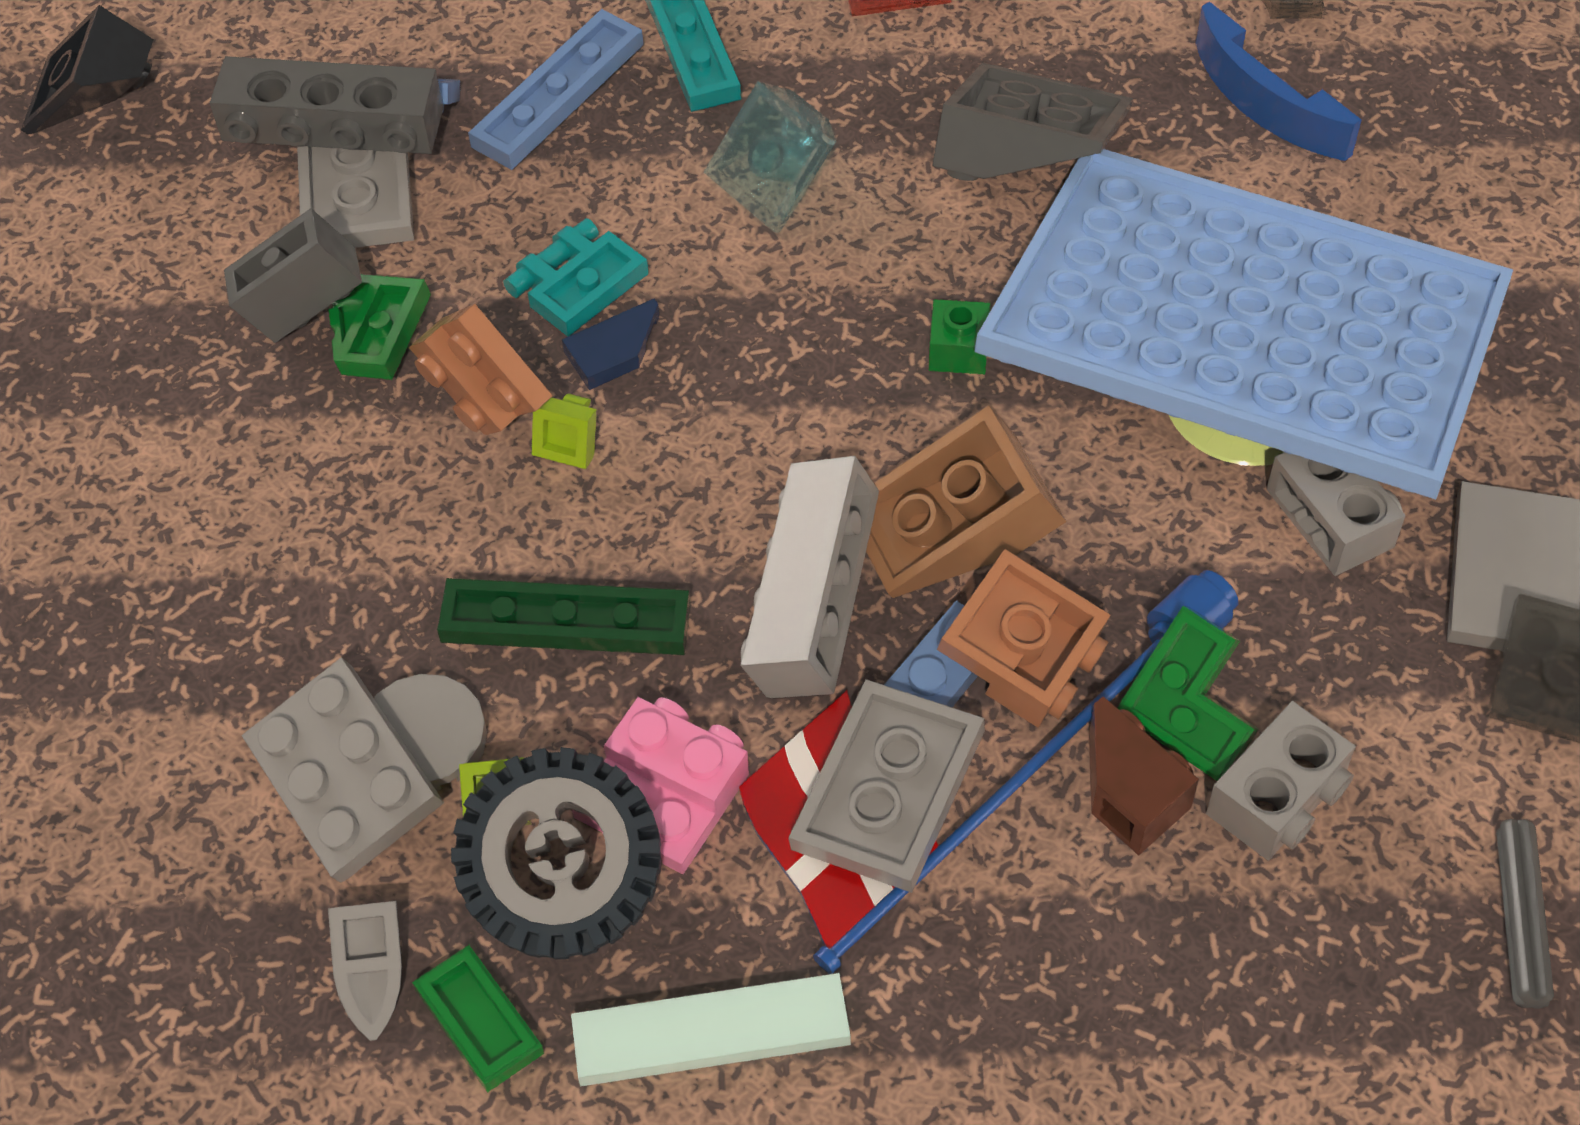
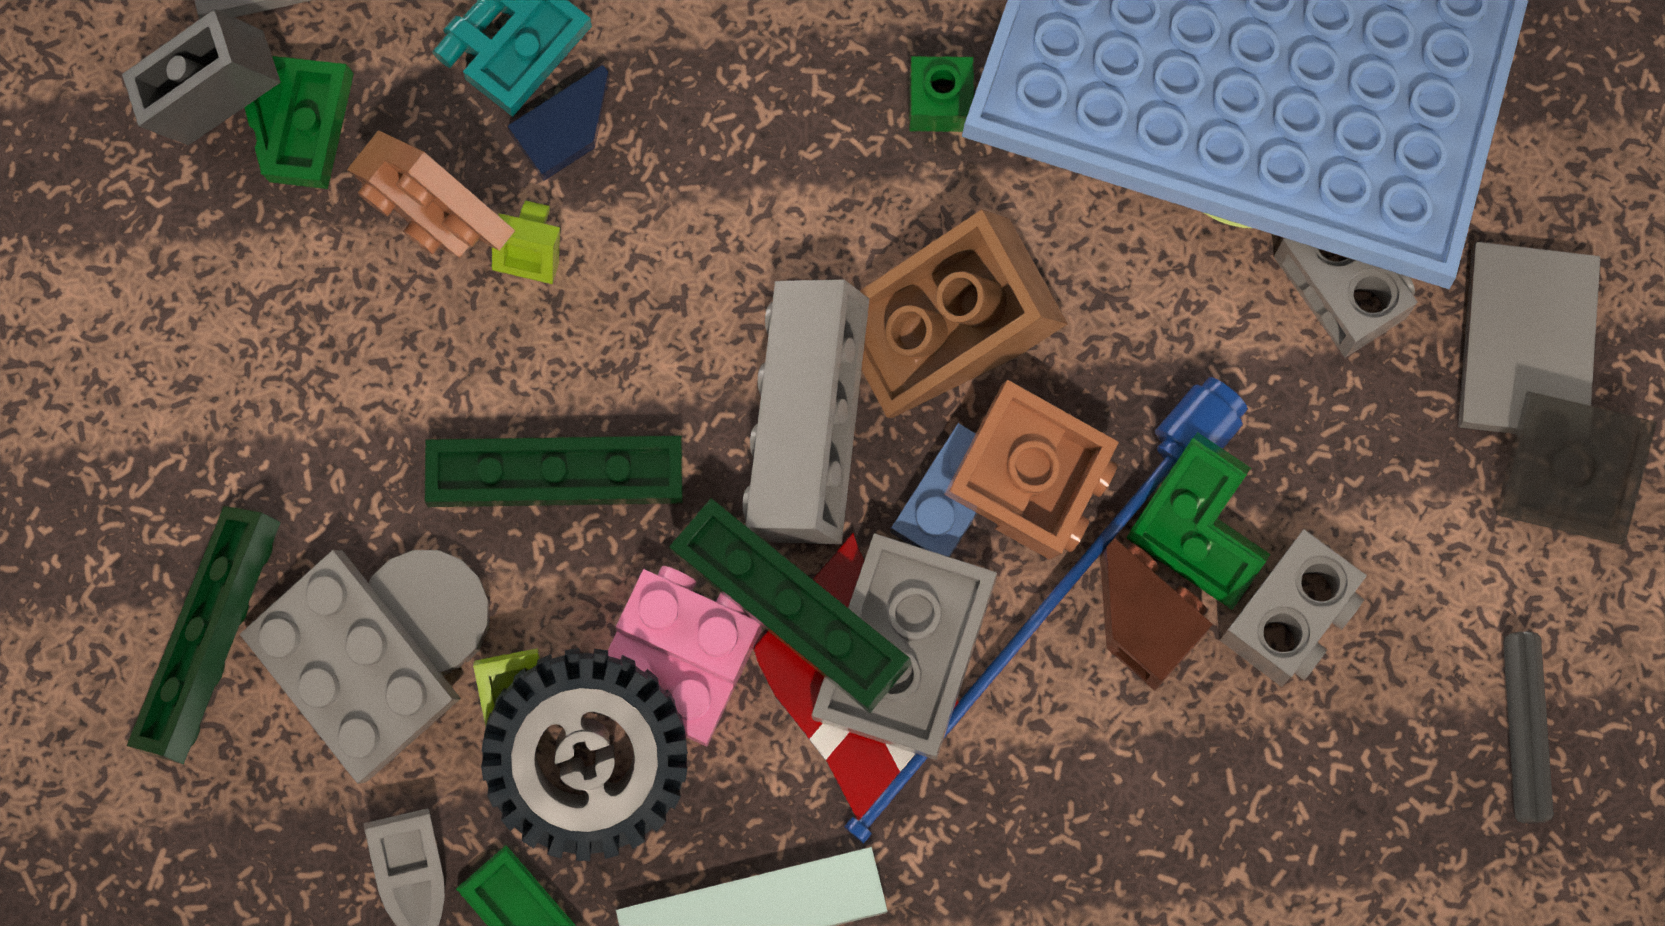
camera: 10 degrees left, 20 degrees up
(196, 748) = (204, 634): none -> dark green plate
(779, 732) = (790, 605): none -> dark green plate

